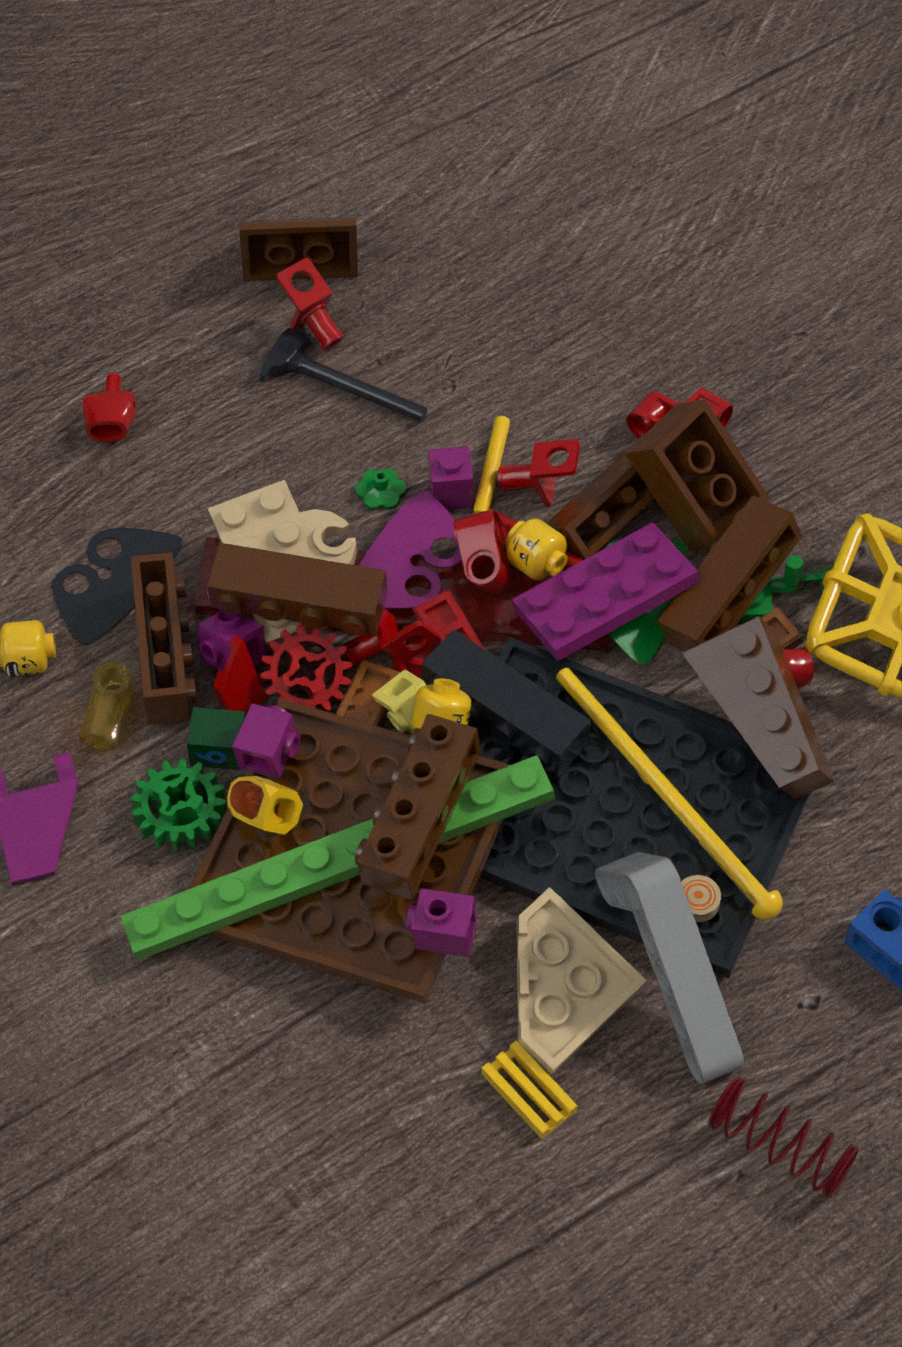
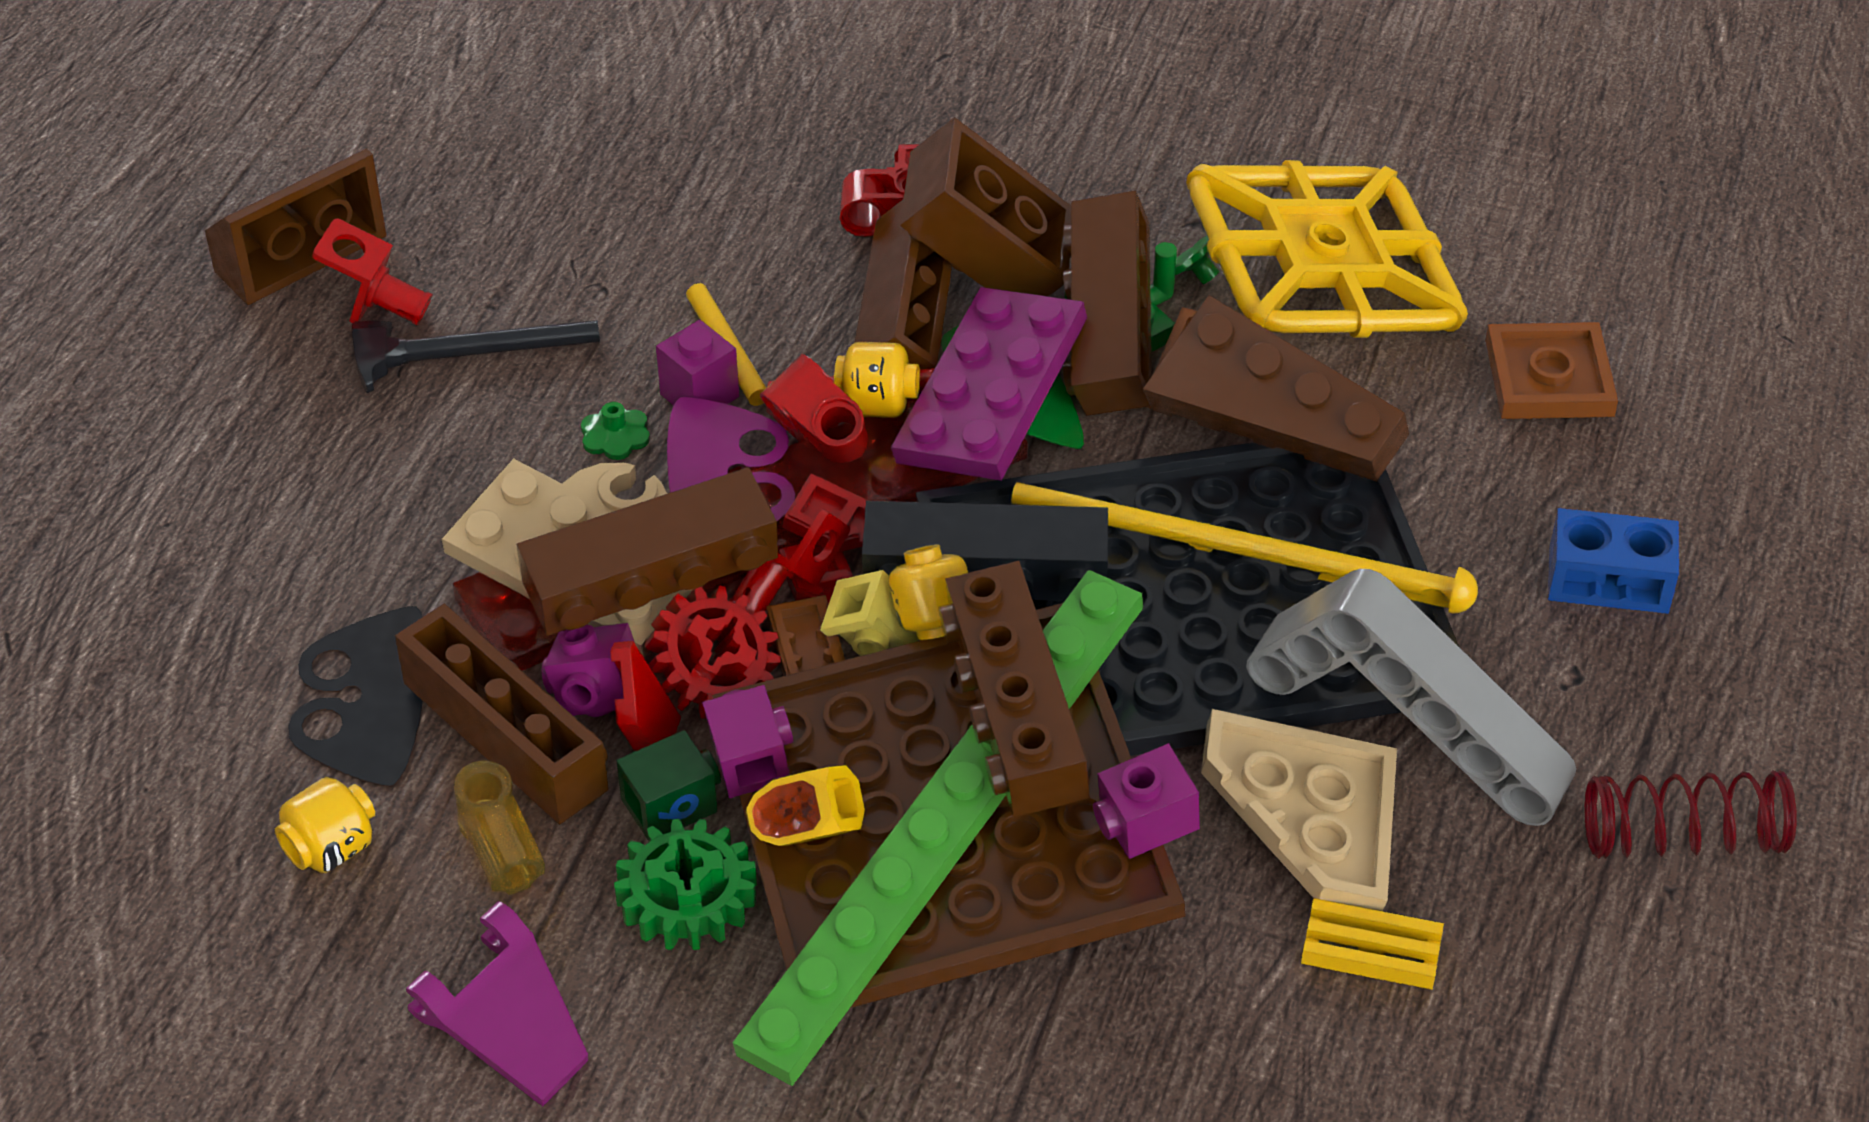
camera: 35 degrees left, 10 degrees down
(109, 412) = (206, 514): red piece -> none
(540, 472) = (793, 316): red bracket -> none

